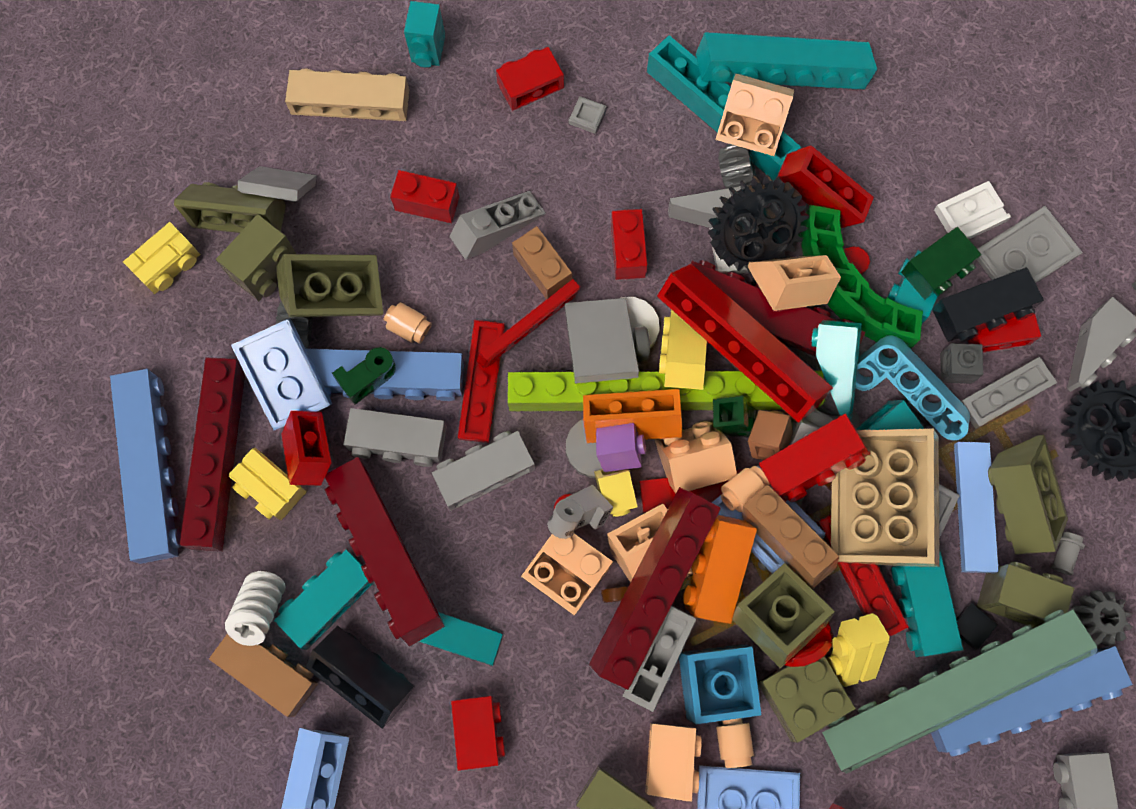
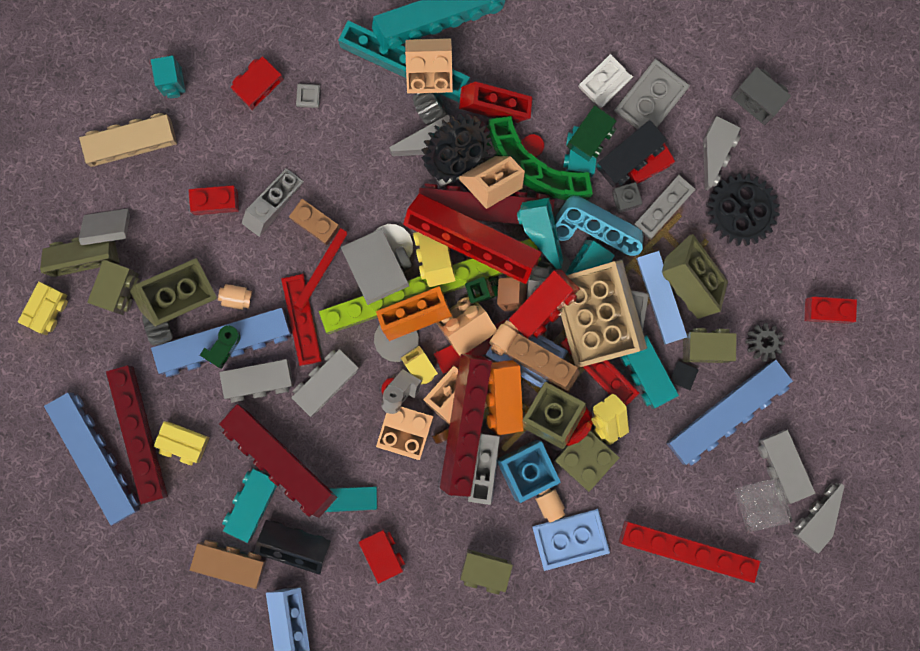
camera: 25 degrees left, 10 degrees up
(255, 608) = (207, 527): white piece -> none
(281, 372) = (163, 365): tile -> none
(306, 448) = (199, 410): red brick -> none
(619, 447) = (412, 338): medium lavender brick -> none
(628, 244) = (370, 187): red brick -> none
(672, 762) = (512, 530): light nougat slope -> none
(959, 691) = (680, 426): sand green brick -> none
(1067, 553) = (732, 305): light grey pin -> none

